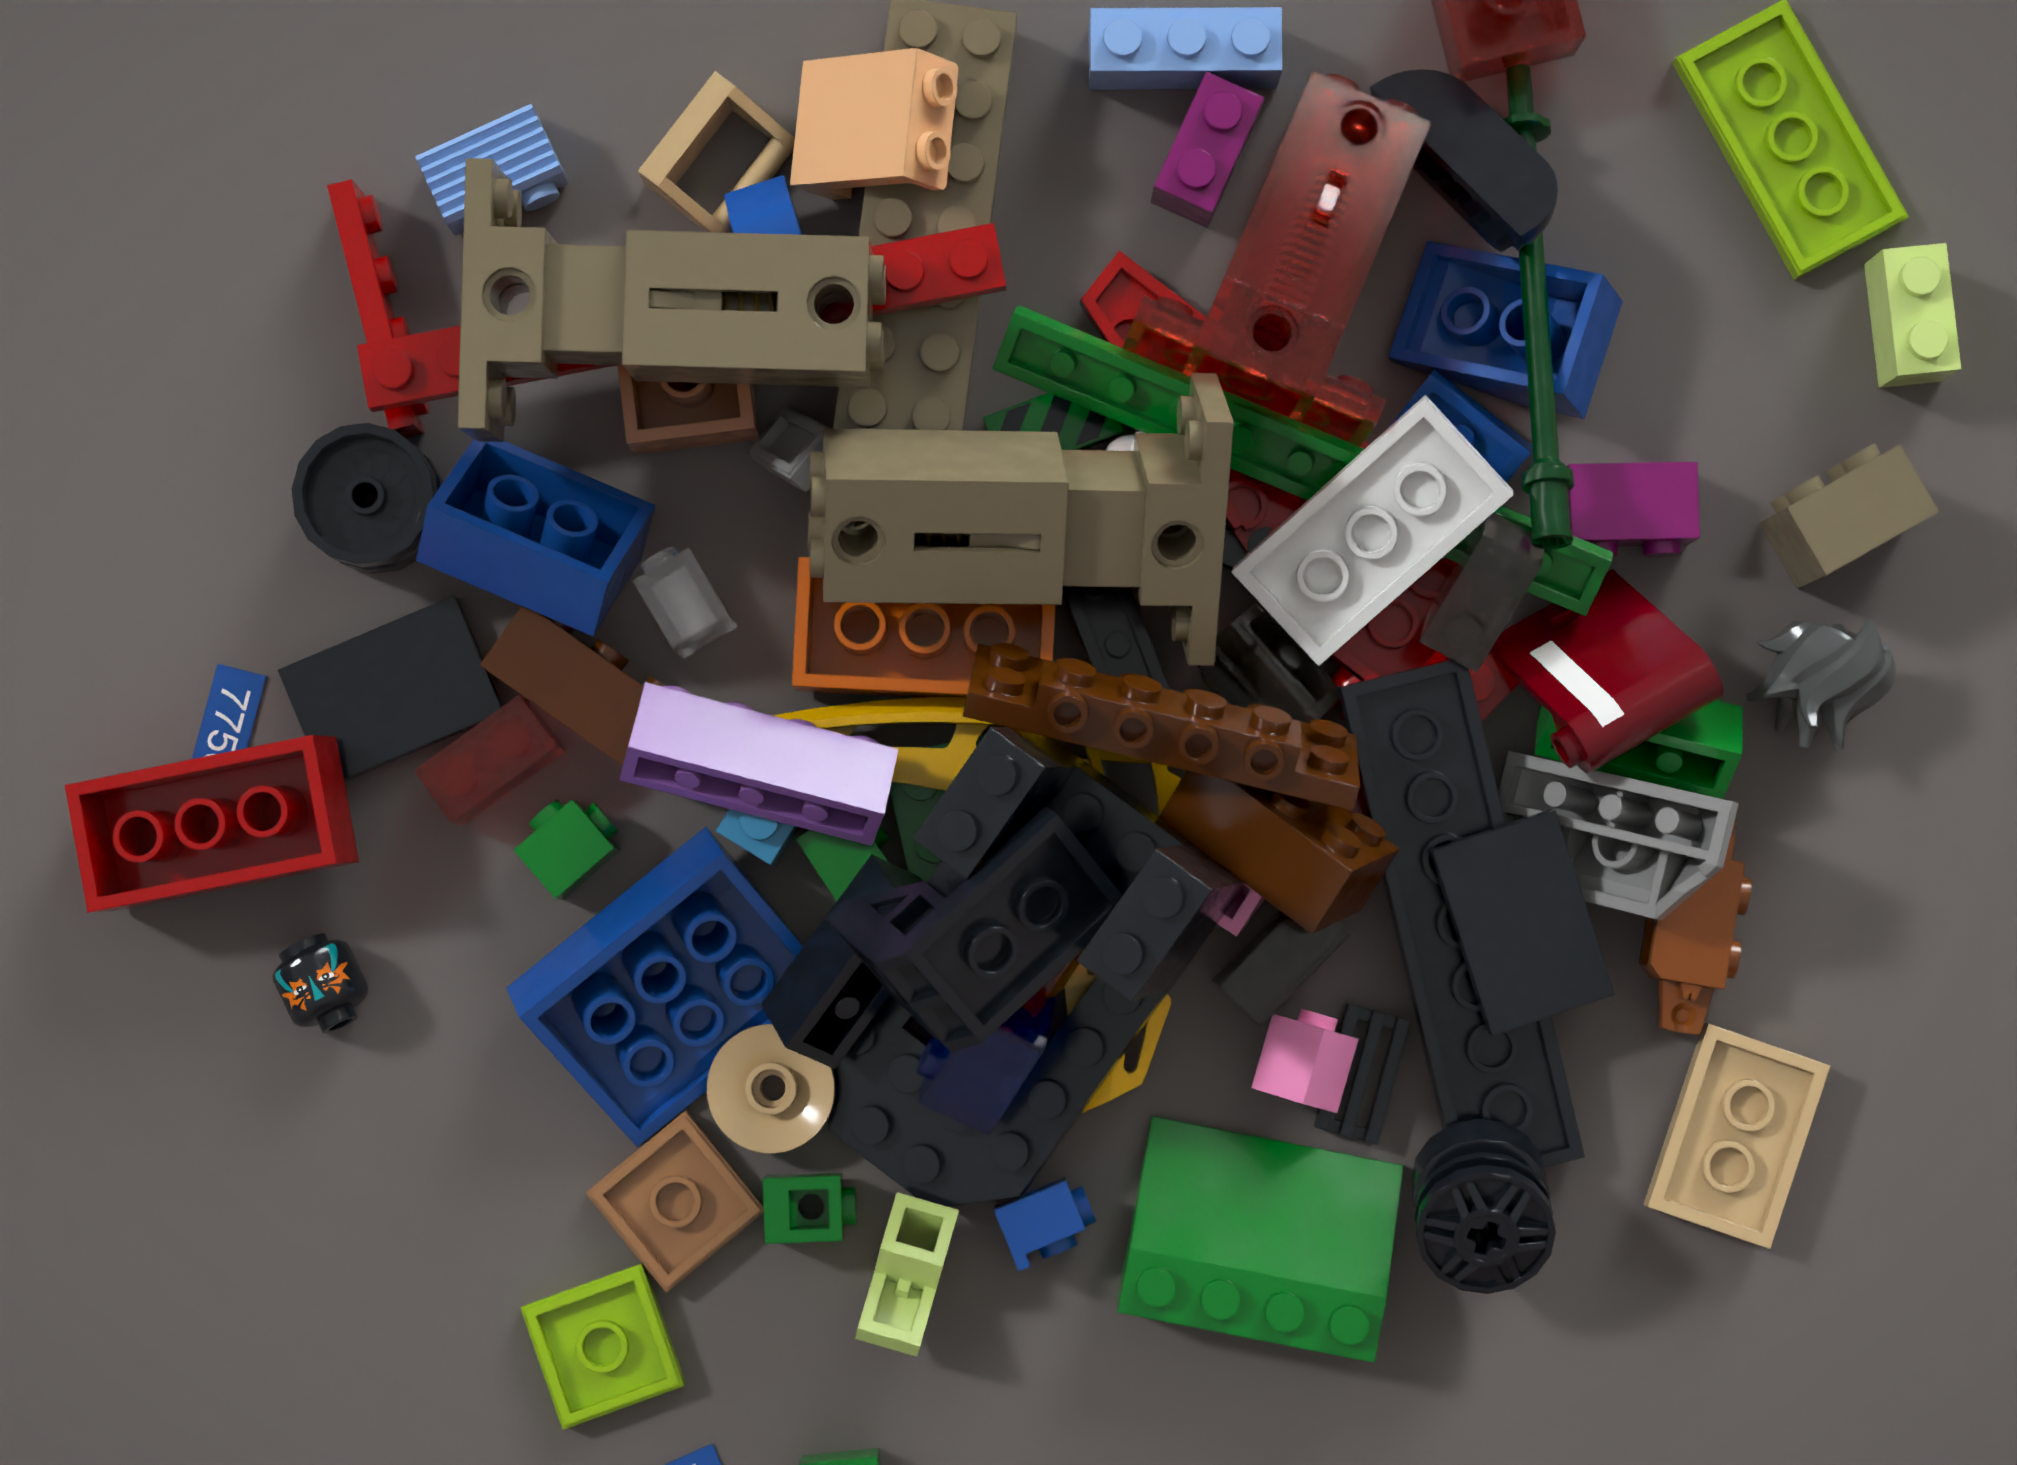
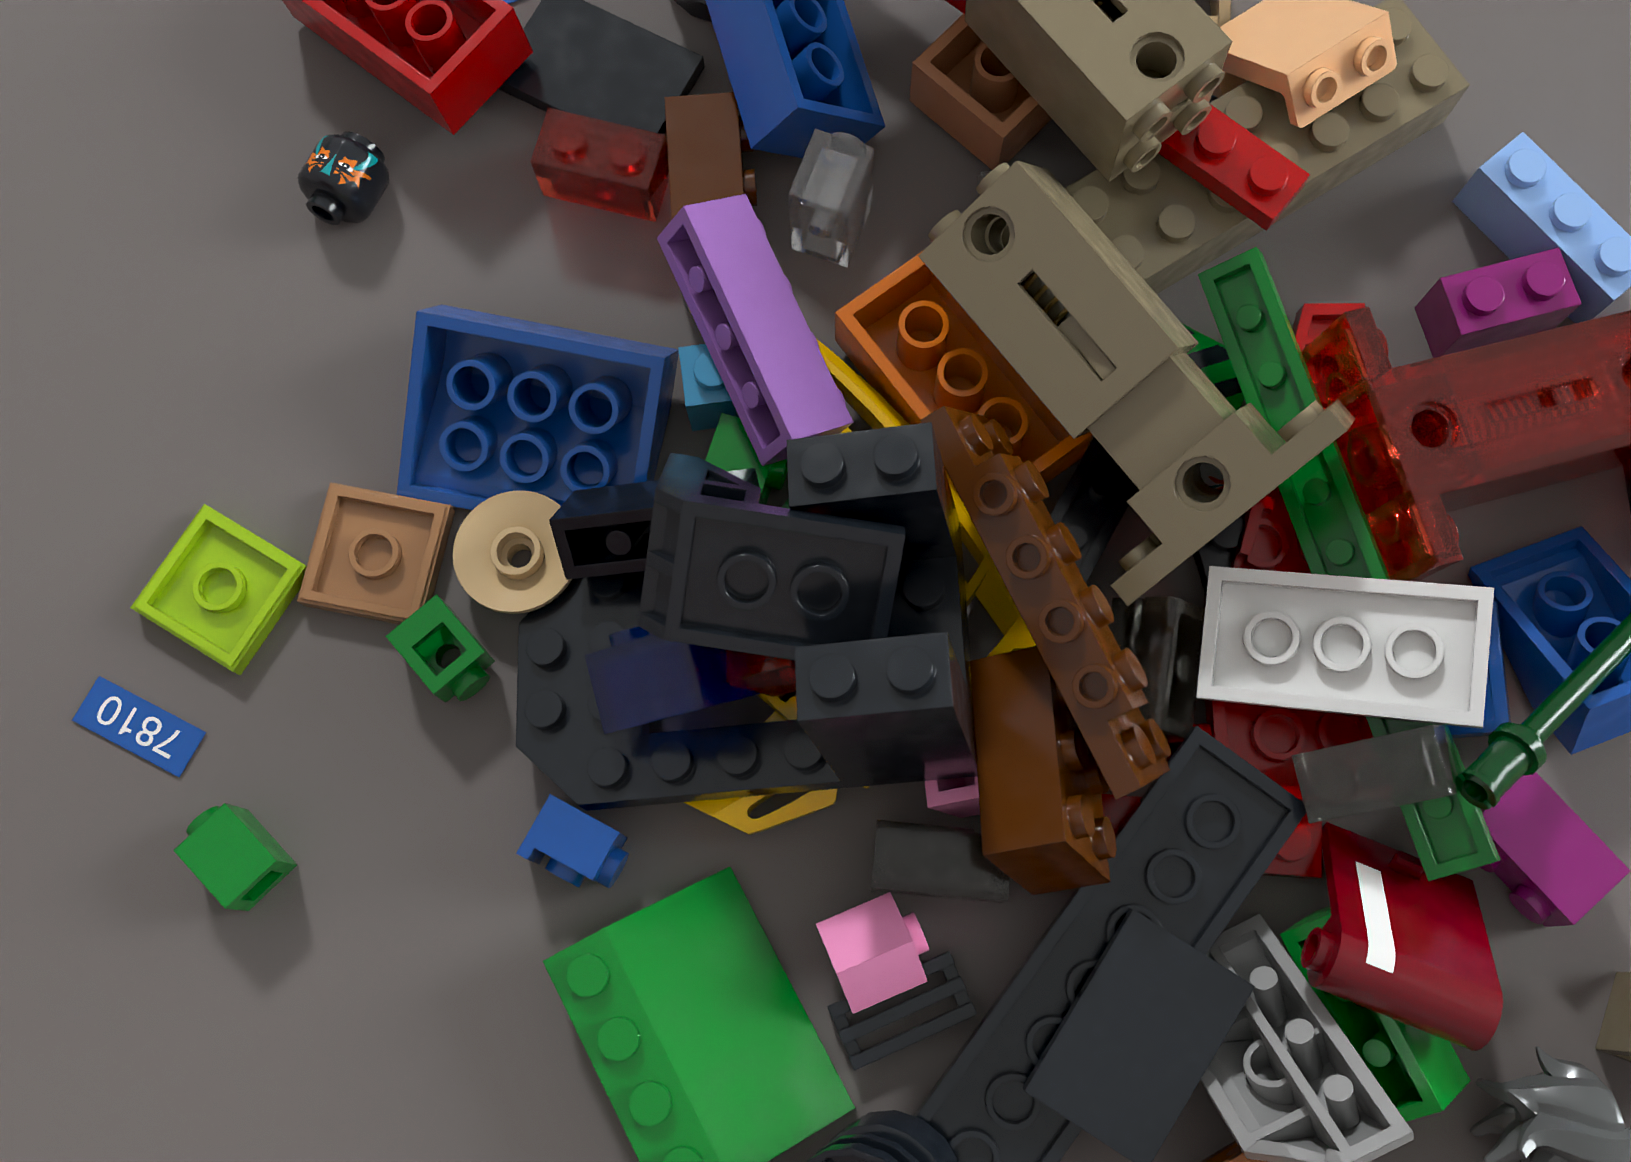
camera: 55 degrees right, 10 degrees down
(568, 845) = (582, 267): green brick -> none
(906, 1274) = (452, 770): yellowish green brick -> none

